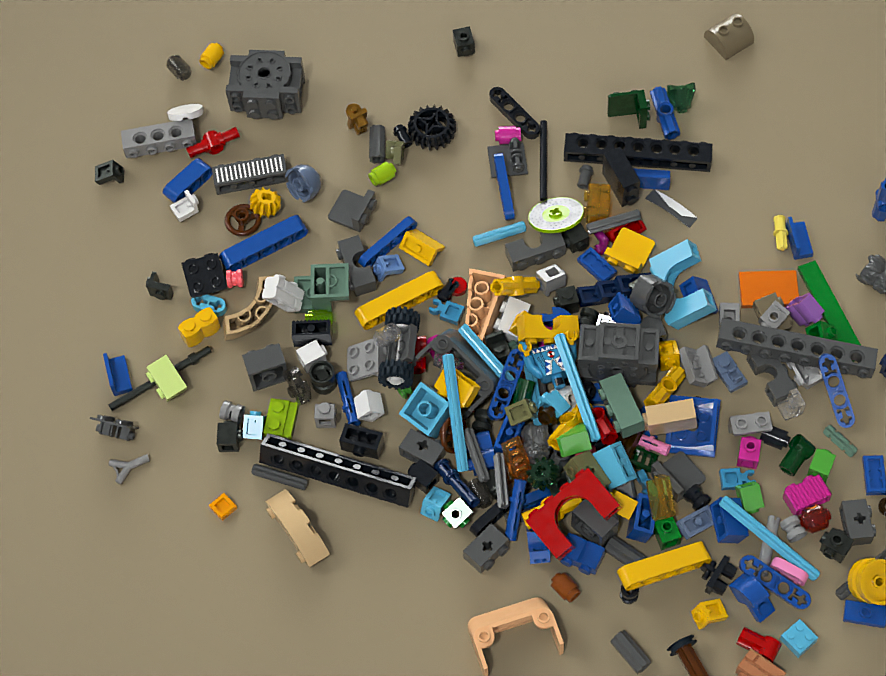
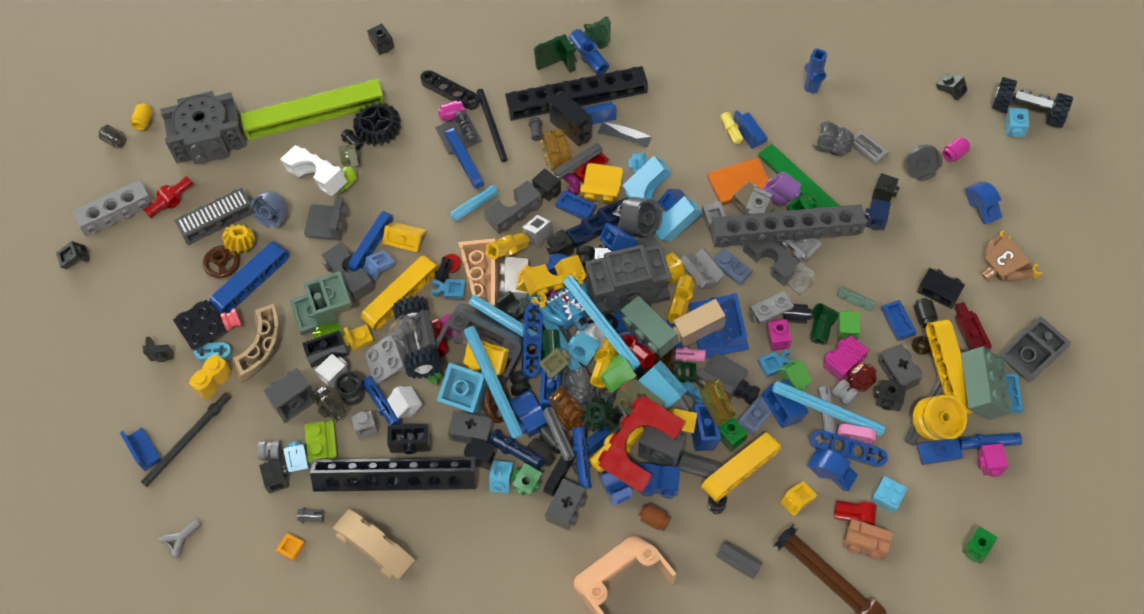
camera: 20 degrees left, 0 degrees up
(120, 428) = (147, 502): dark grey hinge -> none
(166, 378) = (192, 437): yellowish green brick -> none
(185, 111) = (131, 175): white tile -> none
(185, 207) = (160, 265): white bracket -> none
(188, 179) = (154, 240): blue beam -> none
(249, 483) = (310, 515): none -> dark grey pin
(279, 476) = (338, 499): dark grey axle -> none
(283, 293) = (284, 319): white brick -> none
(346, 331) = (358, 337): none -> yellow bracket
(347, 145) = (301, 162): none -> white arch
(357, 118) = (303, 135): pearl gold hips -> none
(374, 94) = (311, 109): none -> lime brick
(377, 144) = (329, 150): dark grey axle -> none
(476, 455) = (526, 417): dark grey axle -> none
(547, 415) = (582, 357): dark brown plate -> none
(556, 215) = (522, 170): piece -> none
(672, 239) = (637, 161): none -> medium azure gear
(715, 584) = (794, 468): black hips -> none
(837, 390) = (836, 254): blue beam -> none

